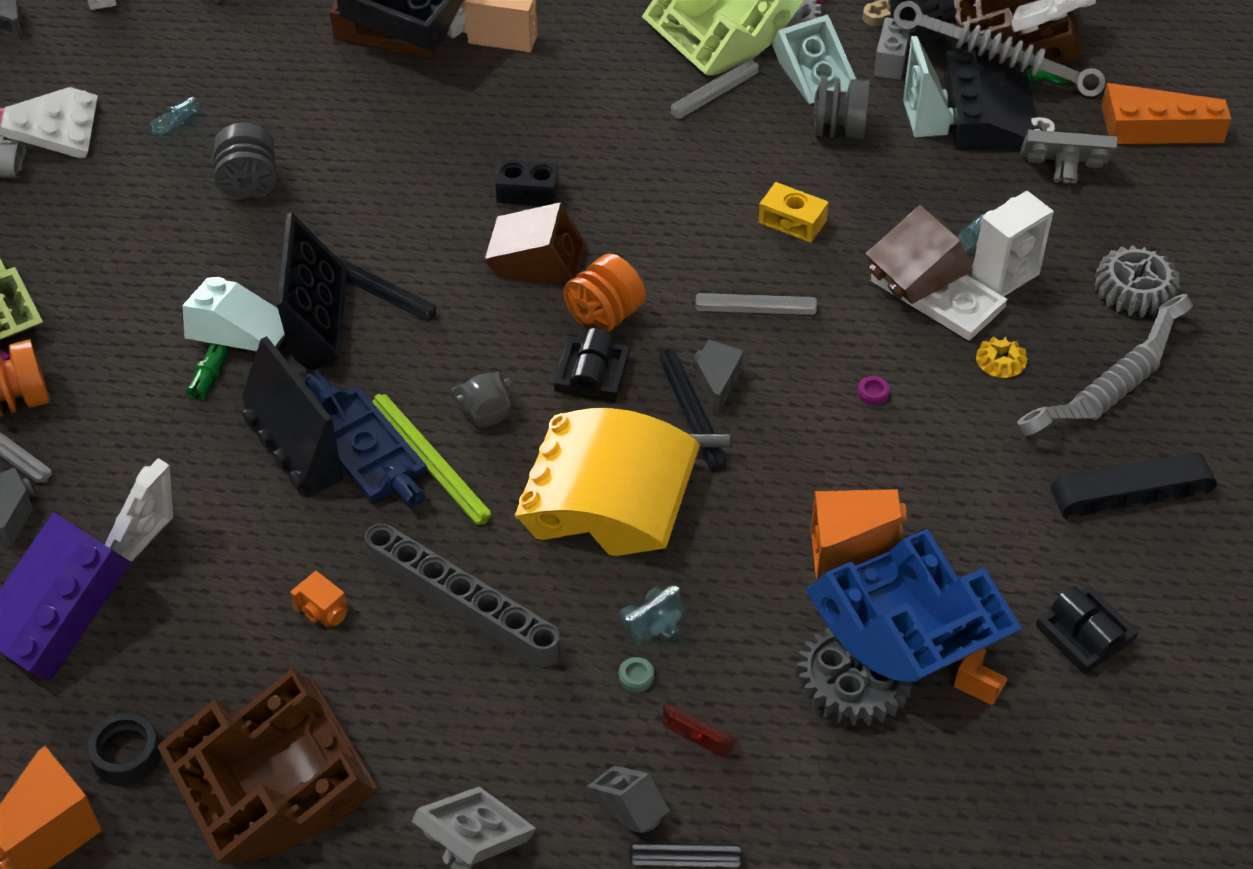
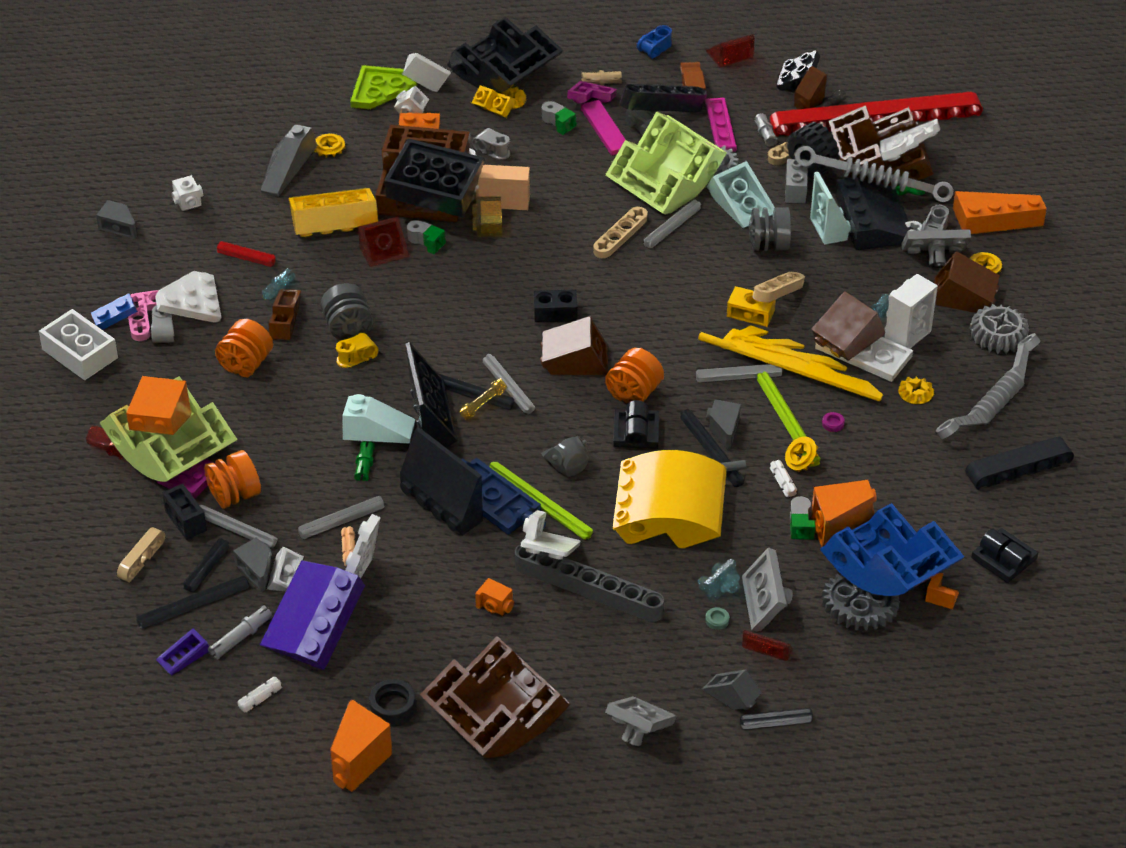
camera: 10 degrees left, 5 degrees down
(53, 501) = (284, 569): none -> white slope
(94, 195) = (244, 347): none -> orange wheel
(149, 450) = (341, 517): none -> light grey axle
(150, 72) = (246, 253): none -> red axle
(168, 156) = (284, 314): none -> reddish brown slope
(245, 213) = (356, 348): none -> yellow piece
(274, 30) = (333, 211): none -> yellow slope
(325, 73) = (382, 241): none -> clear red slope
(368, 316) = (468, 410): none -> clear yellow bar
(386, 71) = (426, 235): none -> leg
(410, 528) = (538, 541): none -> white bracket
(435, 285) = (512, 388): none -> light grey axle
(473, 55) = (488, 216): none -> clear yellow brick
(640, 92) = (617, 231): none -> tan beam
(713, 642) = (765, 590): none -> light grey plate
(783, 467) = (783, 478): none -> white axle
(793, 525) = (800, 524): none -> green leg
(810, 380) = (782, 409): none -> lime axle
(813, 423) = (798, 447): none -> yellow gear
(818, 284) = (780, 354): none -> yellow animal
(834, 189) = (778, 287): none -> tan beam
(1075, 118) = (936, 219): none -> light grey piece
(1098, 214) = (965, 284): none -> reddish brown slope
(1125, 180) = (994, 263): none -> yellow gear

